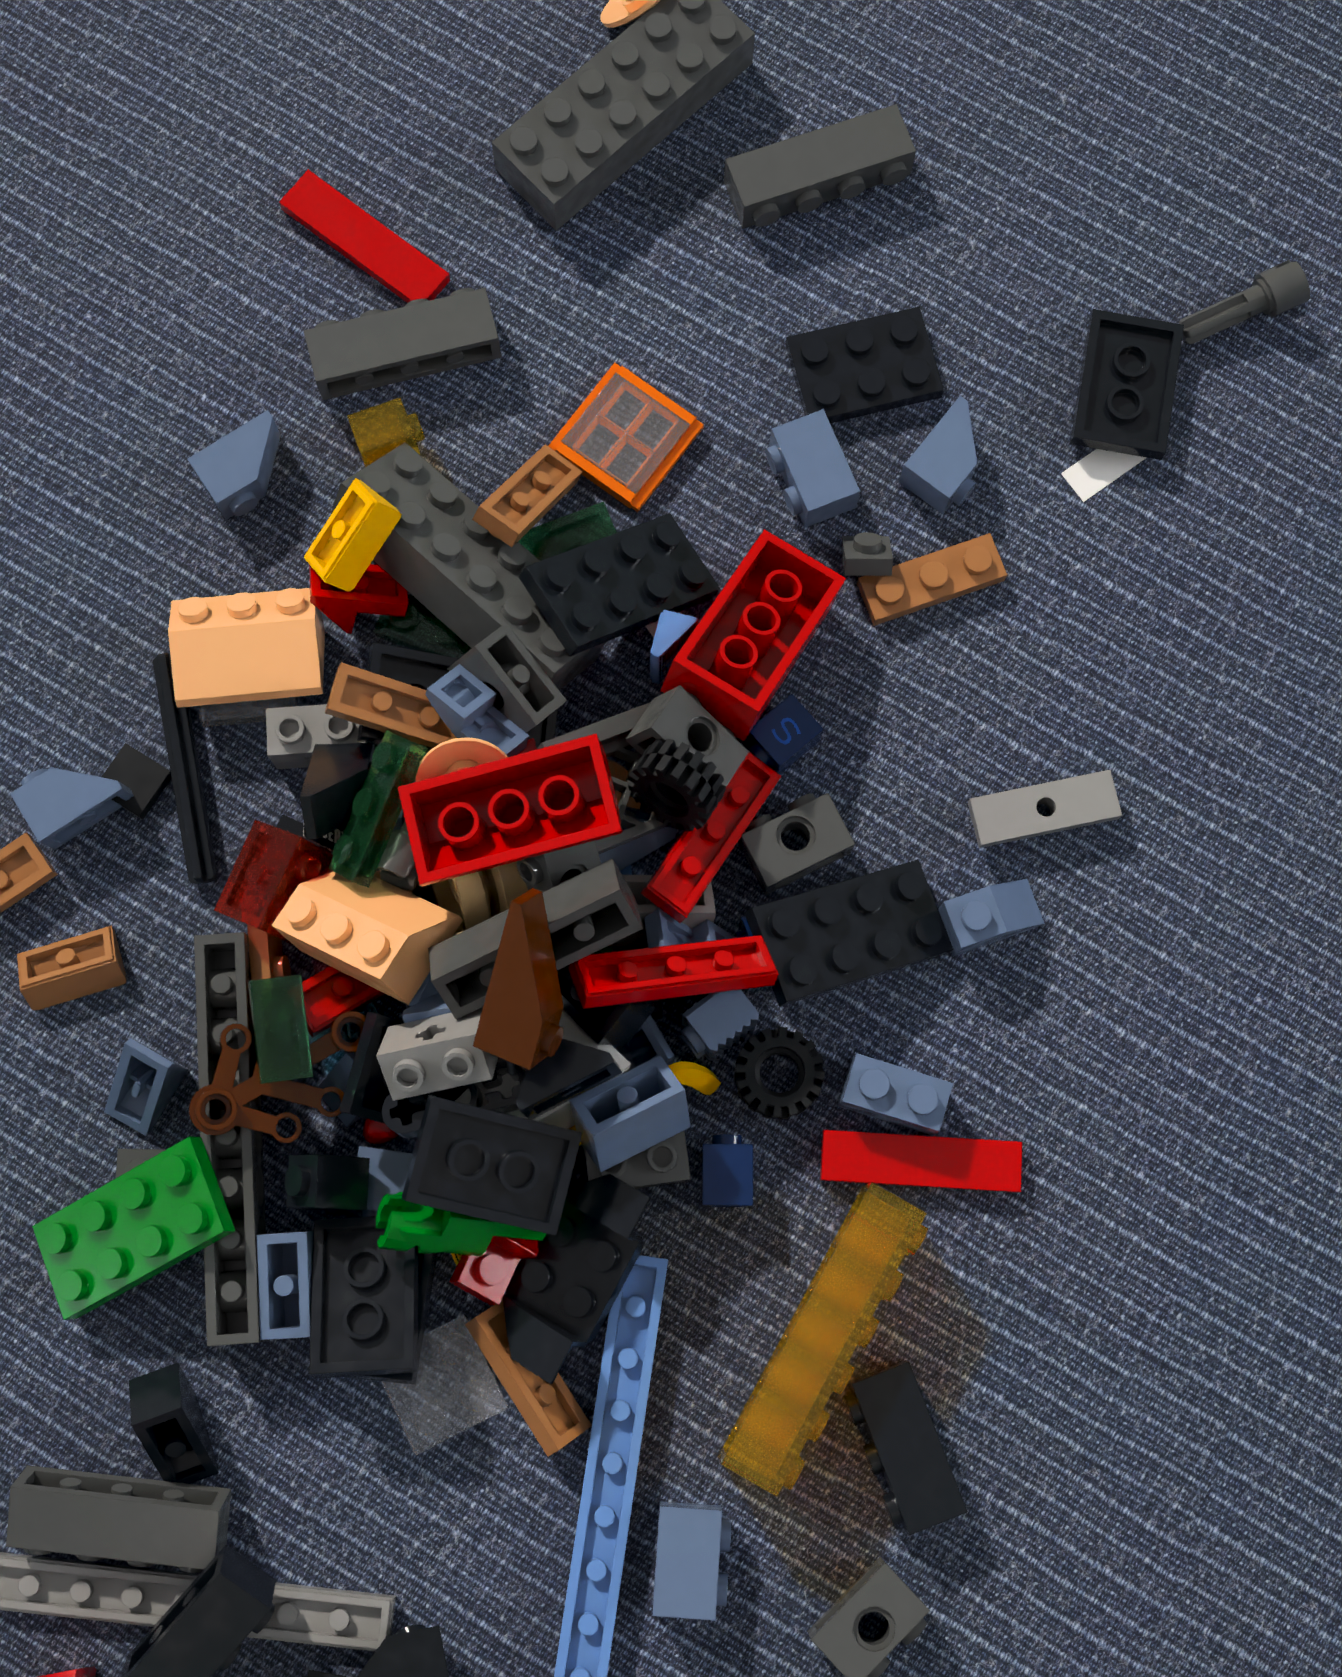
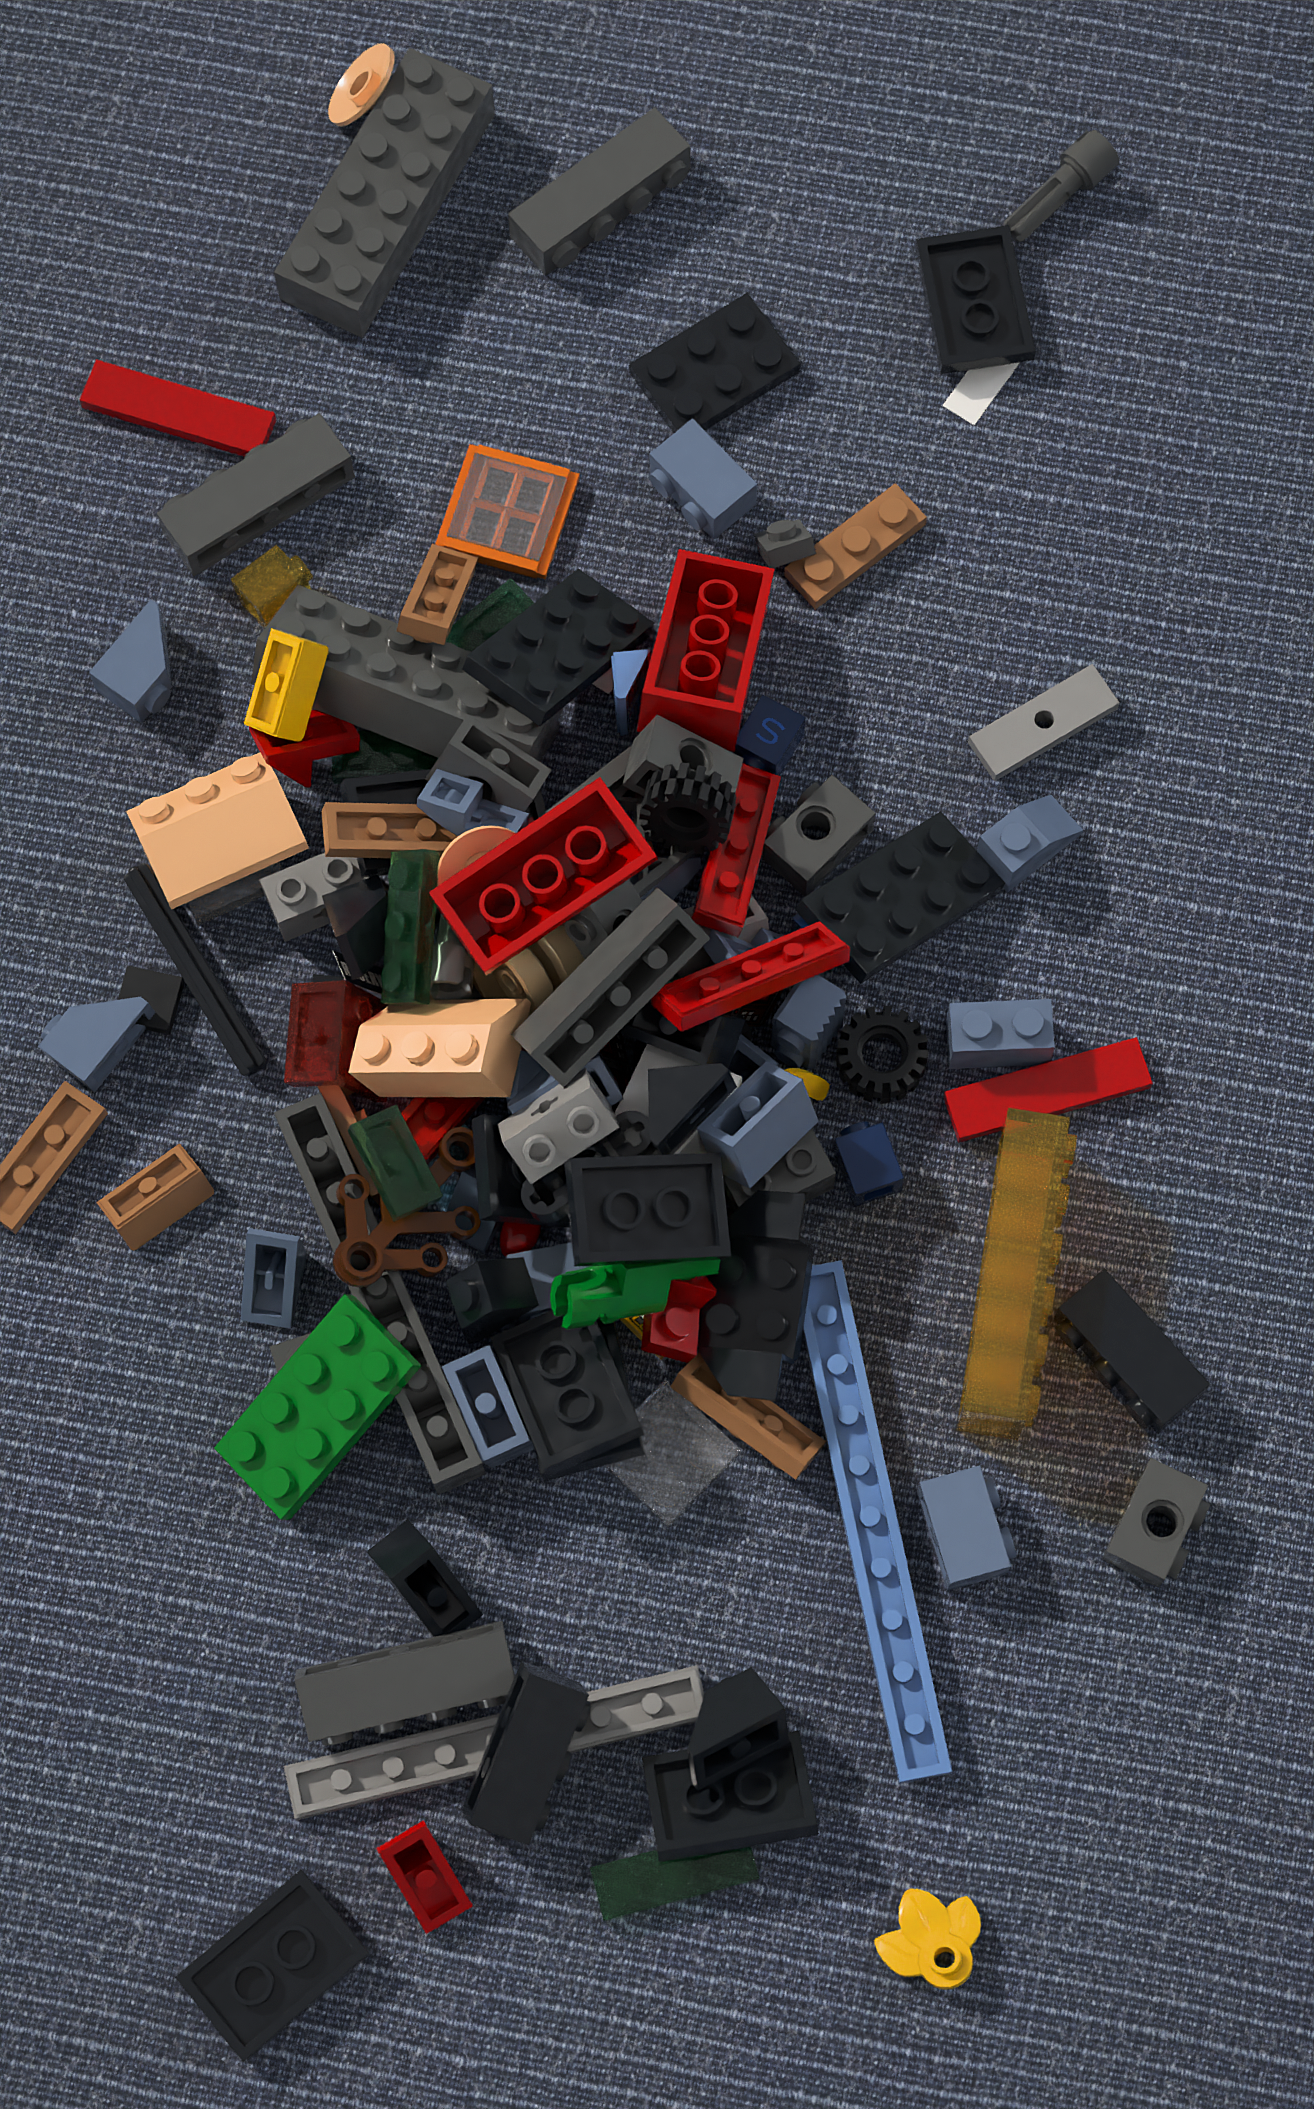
camera: 15 degrees left, 5 degrees down
(524, 989) = (624, 1034): reddish brown slope -> none
(944, 461) = (826, 430): sand blue slope -> none

